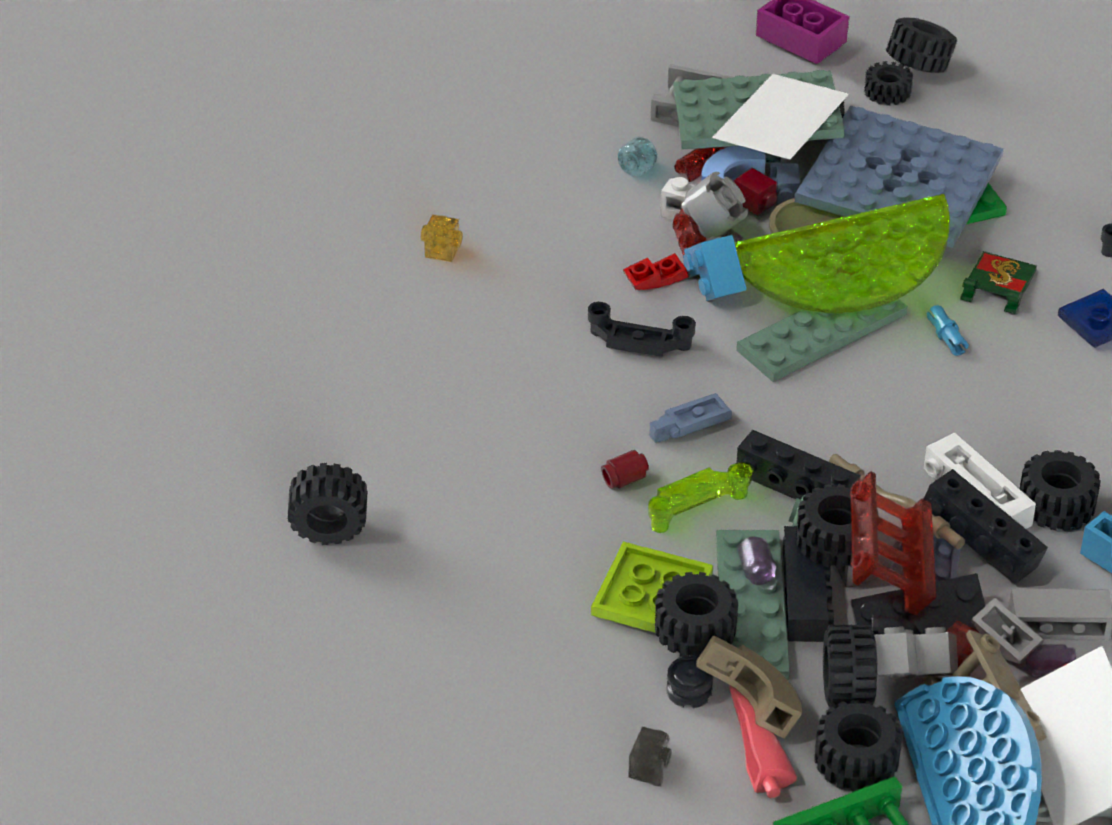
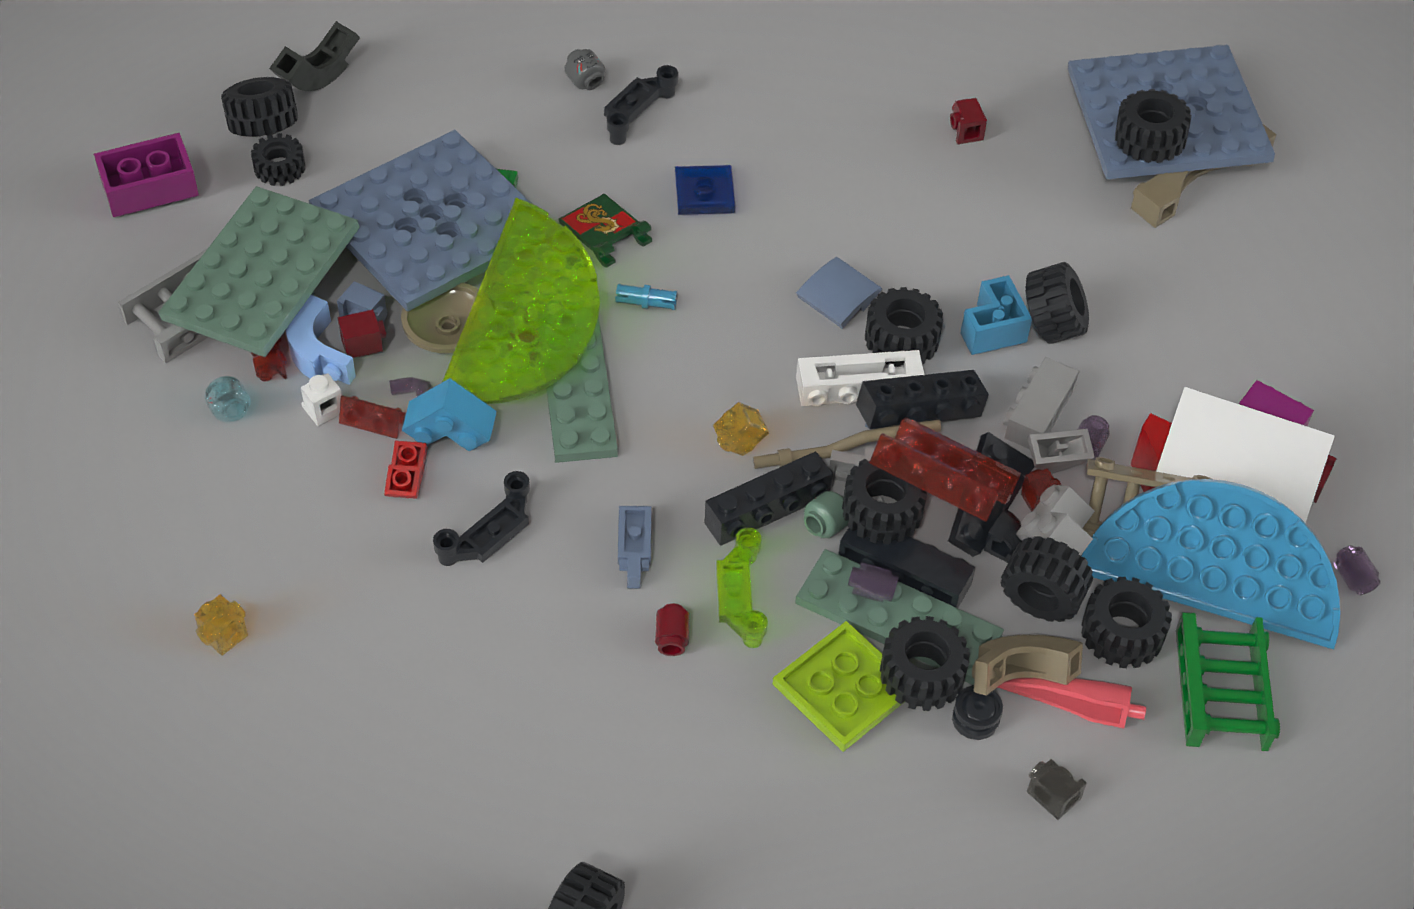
camera: 65 degrees left, 10 degrees up
(715, 205) = (369, 372): light grey brick -> none
(780, 116) = (301, 256): white sticker -> none
(851, 429) = (740, 429): none -> clear yellow brick
(996, 59) = (319, 66): none -> pearl dark grey arch
(1067, 434) = (838, 291): none -> sand blue slope

